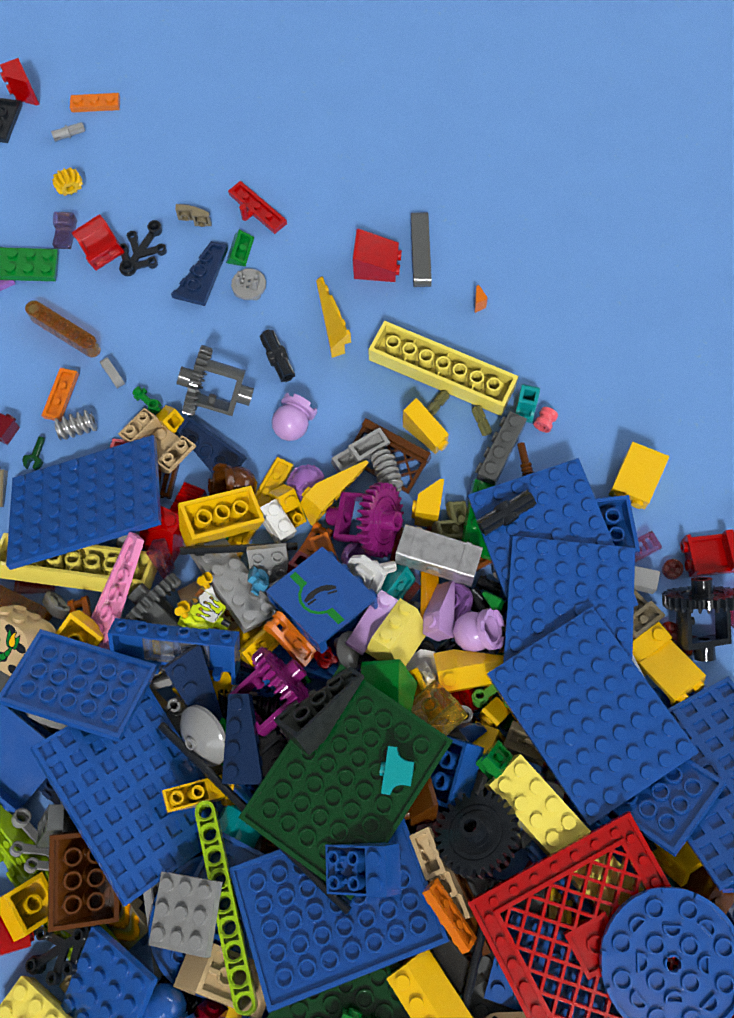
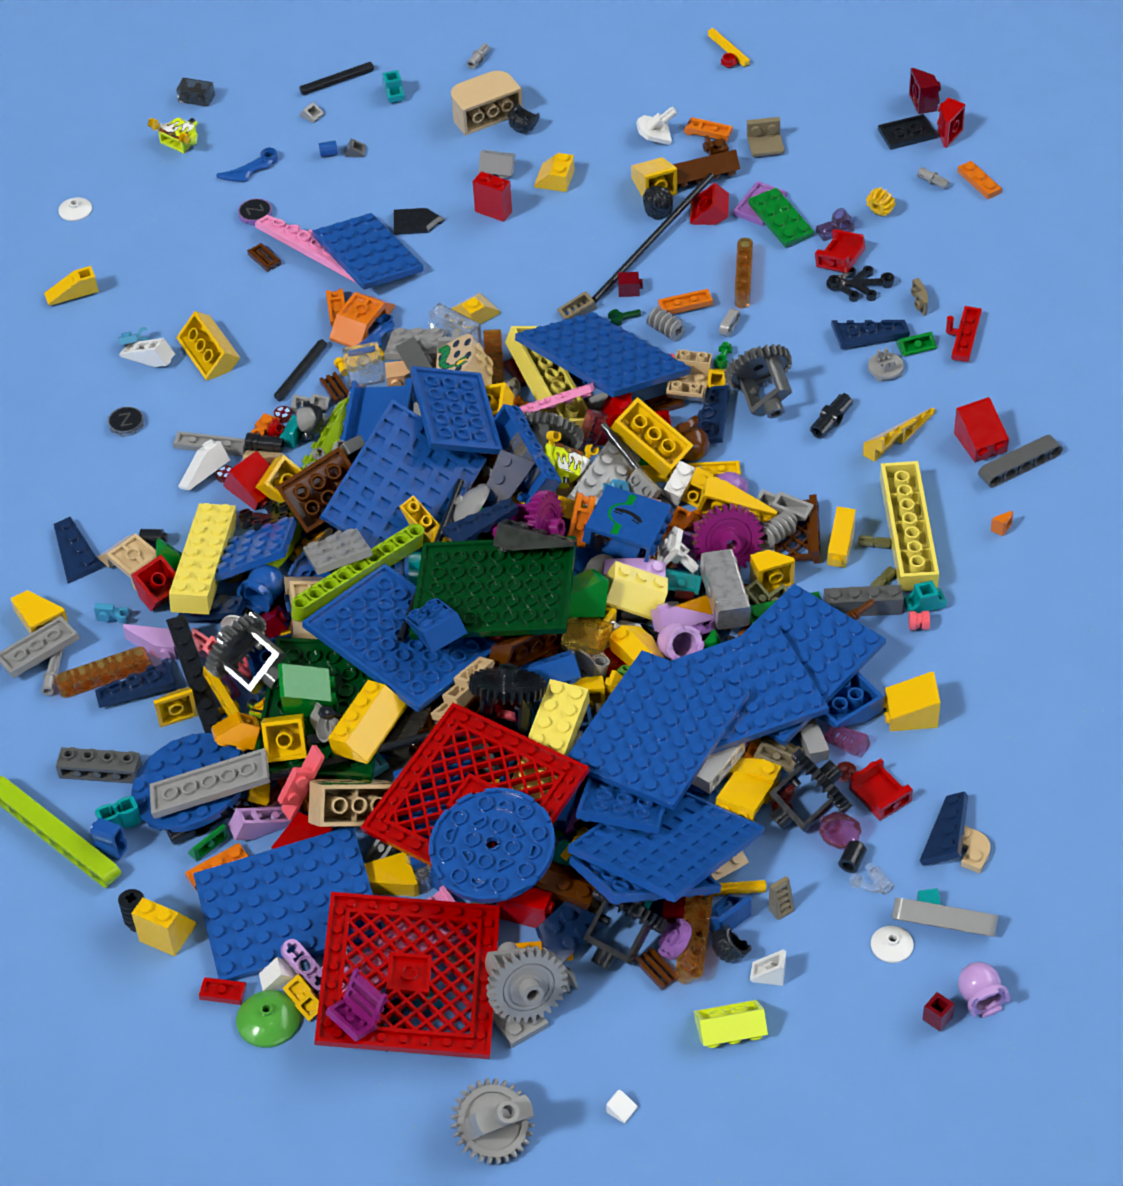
camera: 60 degrees right, 20 degrees down
(292, 418) = (776, 448): lavender tile -> none
(323, 662) = (583, 554): red plate -> none
(395, 771) = (517, 602): teal brick -> none
(449, 916) = (436, 699): orange plate -> none
(472, 731) = (591, 670): dark blue tile -> none
(494, 760) = (572, 675): green slope -> none
(506, 512) = (793, 608): black piece -> none

